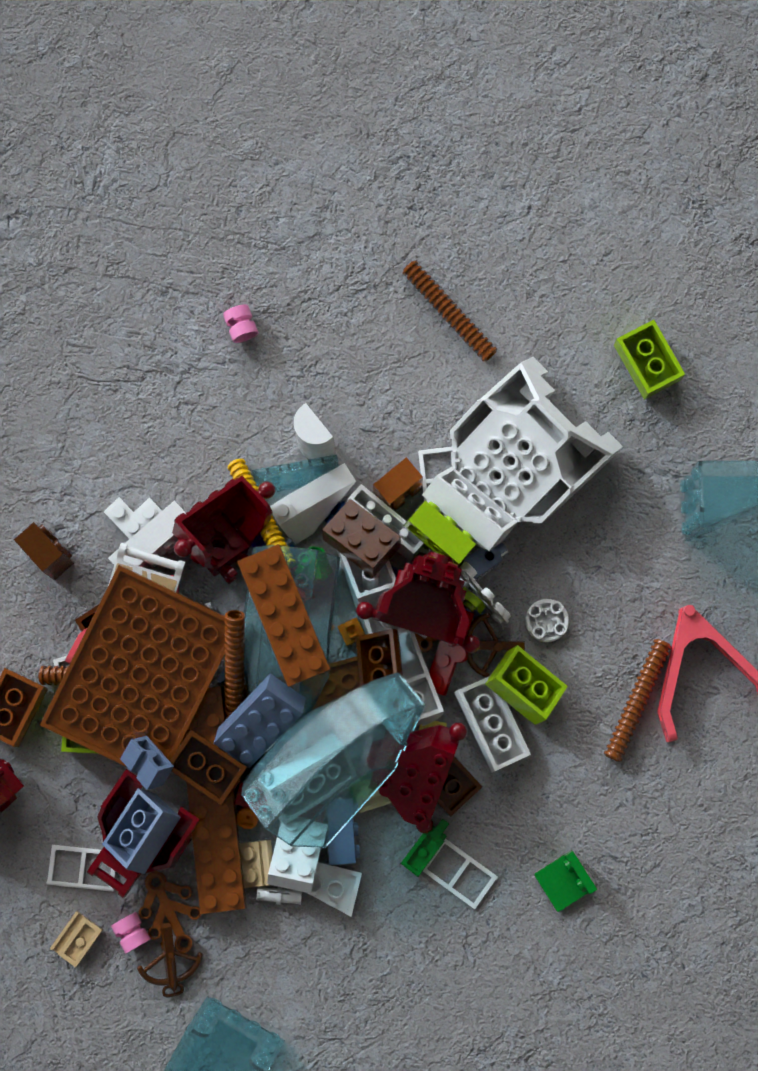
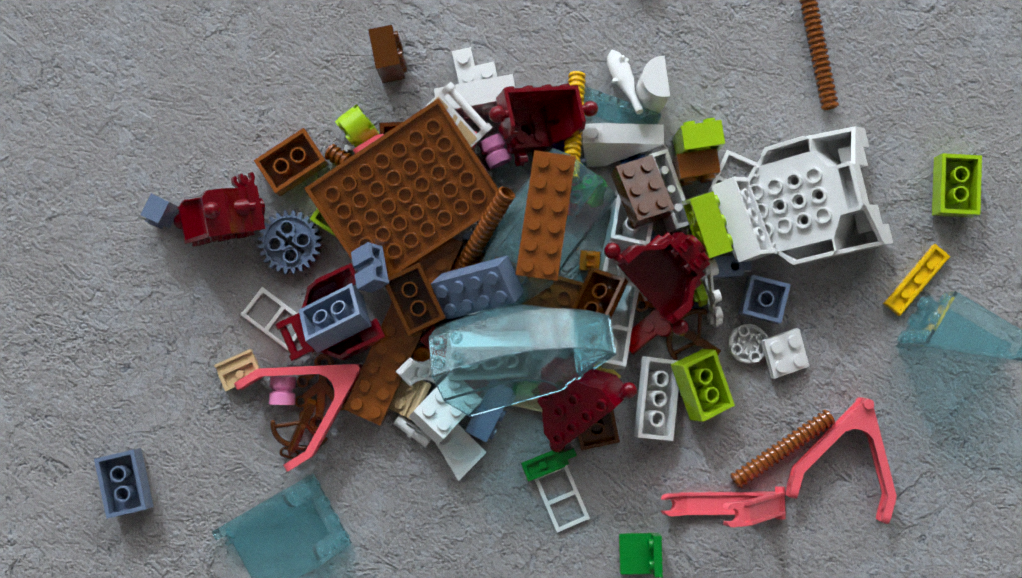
camera: 30 degrees right, 5 degrees up
(54, 636) = (356, 126): none -> lime brick
(57, 765) = (279, 256): none -> sand blue gear
(184, 886) = (342, 378): none -> coral piece
(200, 581) = (495, 151): none -> bright pink wheel
(247, 836) = (415, 371): none -> white tile
(281, 441) = (623, 77): none -> white piece
(383, 456) = (699, 136): none -> lime brick
(535, 570) = (764, 299): none -> sand blue brick
(586, 609) = (785, 353): none -> white plate
(620, 783) = (747, 506): none -> coral piece
(666, 467) = (916, 280): none -> yellow tile

